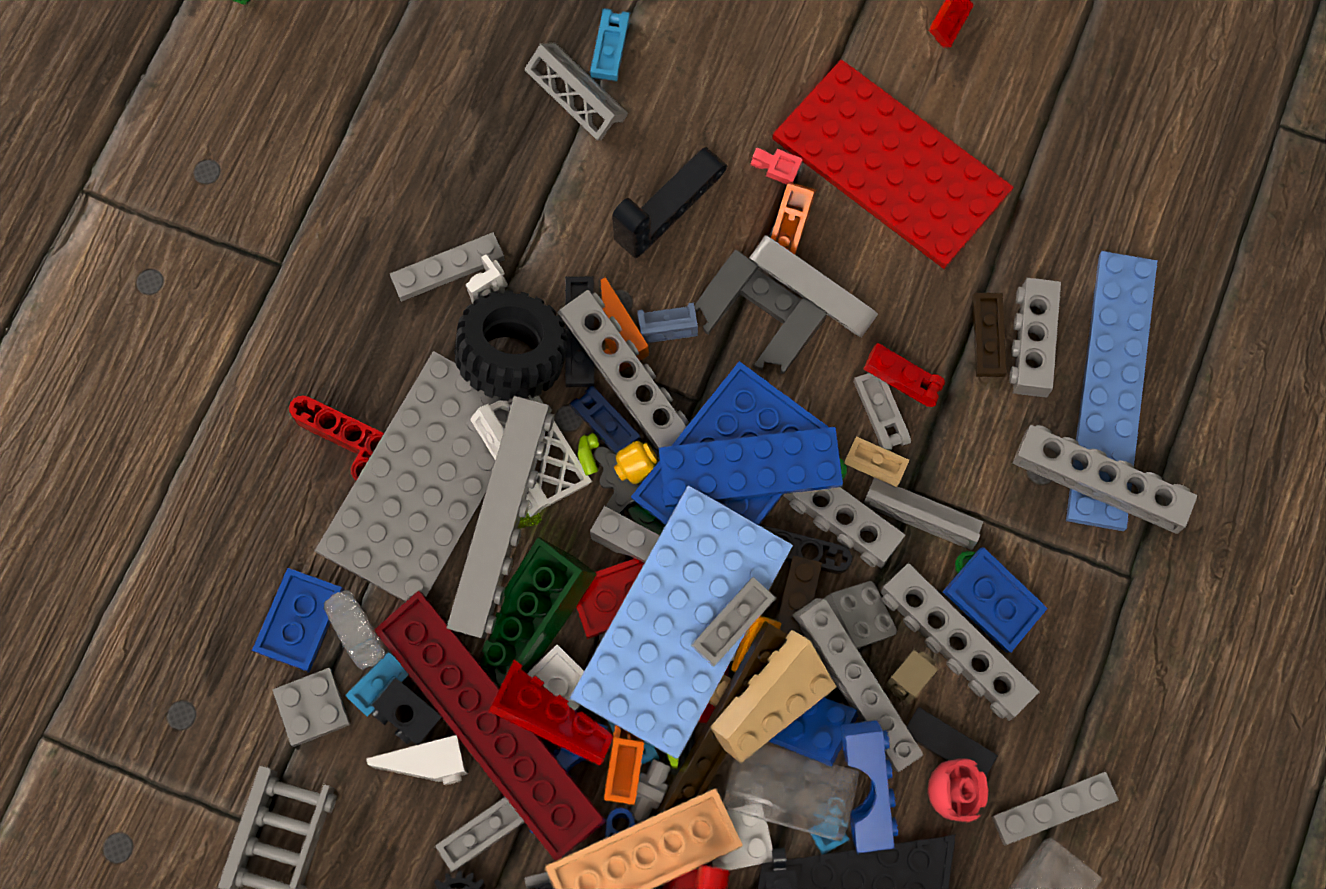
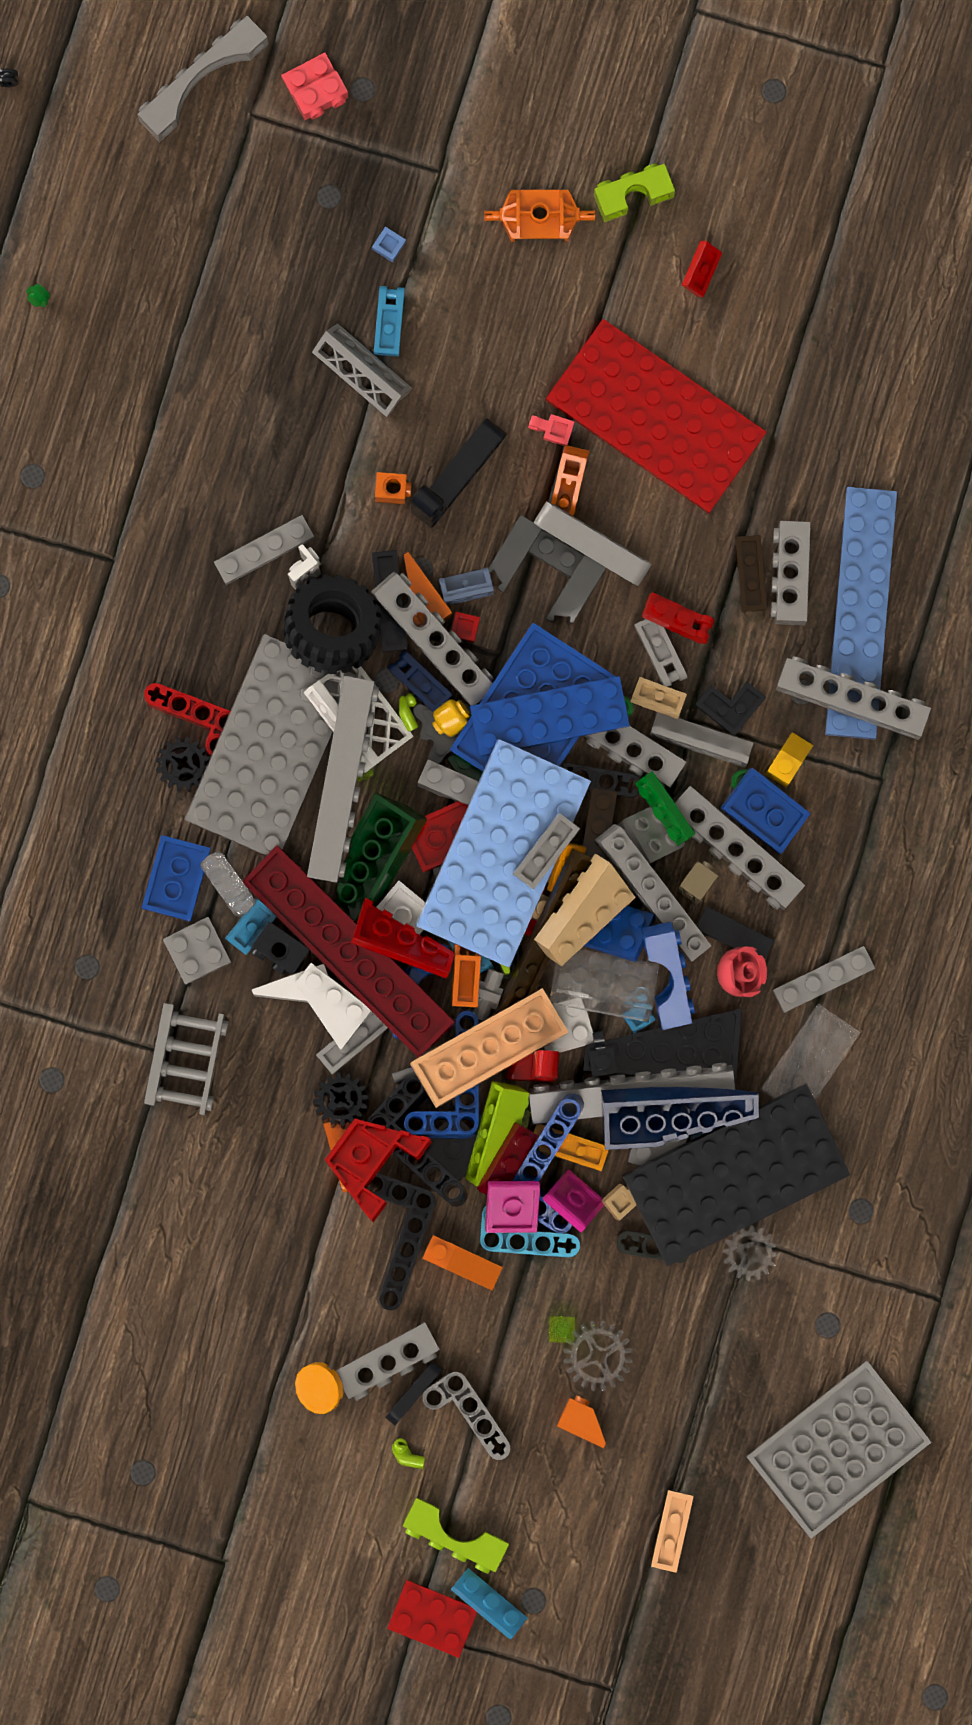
camera: 10 degrees left, 10 degrees up
(318, 499) = (176, 774): none -> black gear
(460, 784) = (332, 1003): none -> white wing
(586, 204) = (384, 480): none -> orange brick
(663, 365) = (465, 626): none -> red plate
(877, 586) = (664, 808): none -> green plate
(958, 486) = (731, 713): none -> black plate
(1024, 545) = (789, 760): none -> yellow slope

